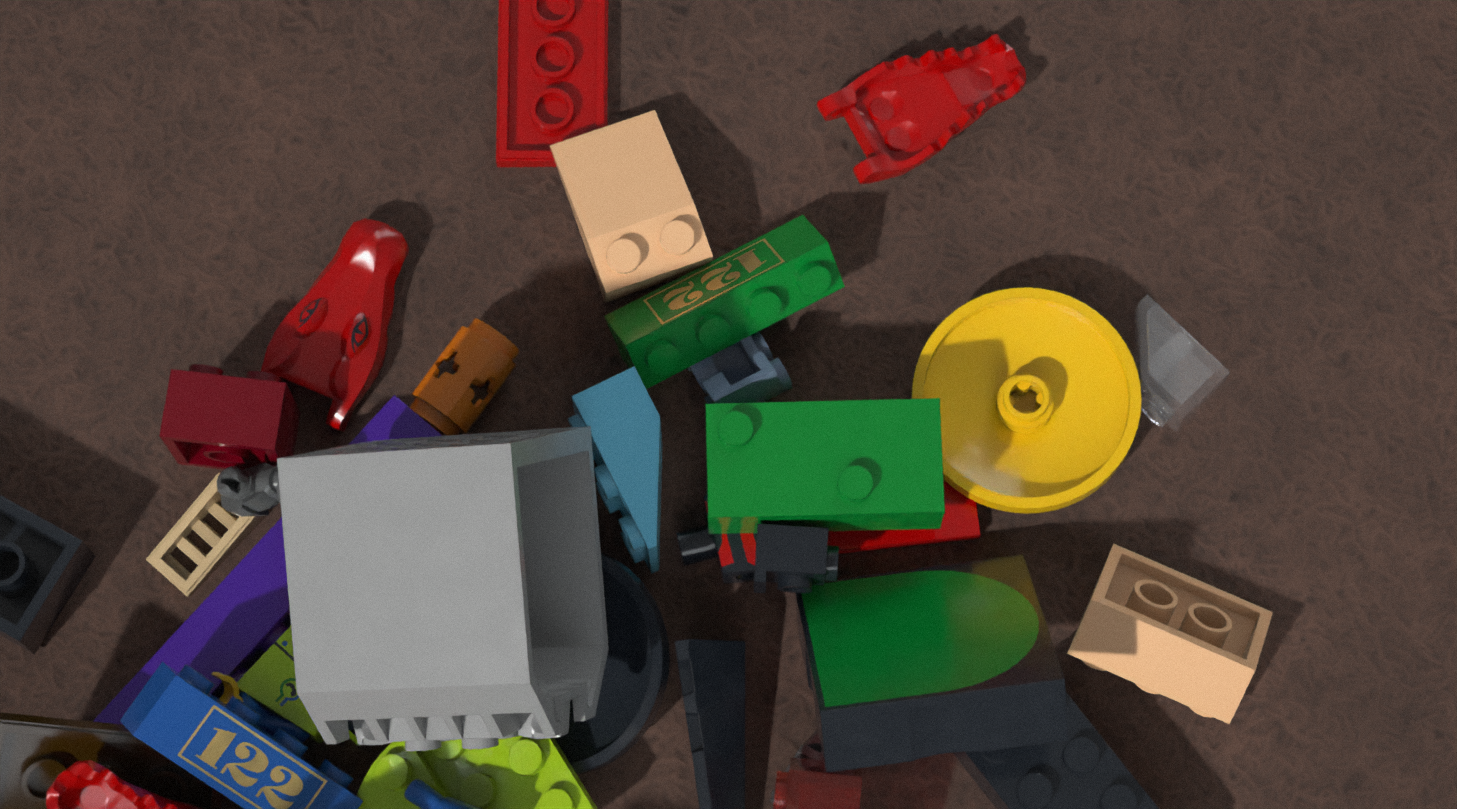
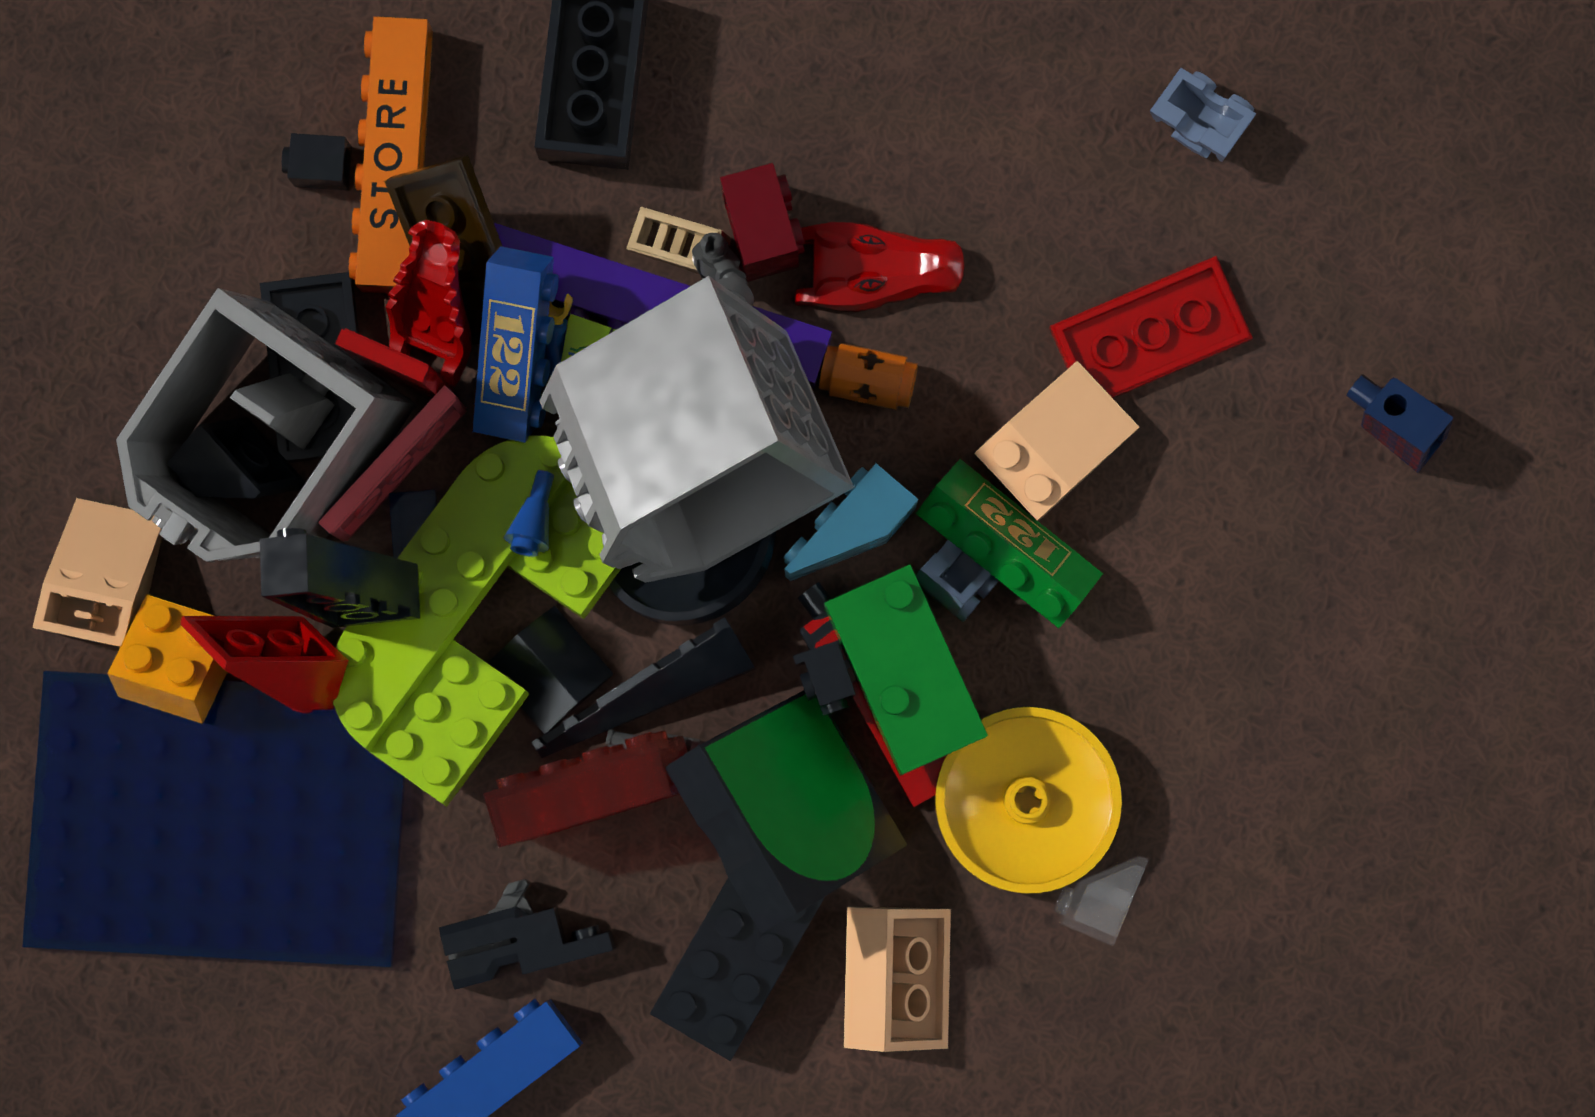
camera: 70 degrees right, 10 degrees up
(917, 105) = (1230, 625): red animal -> none

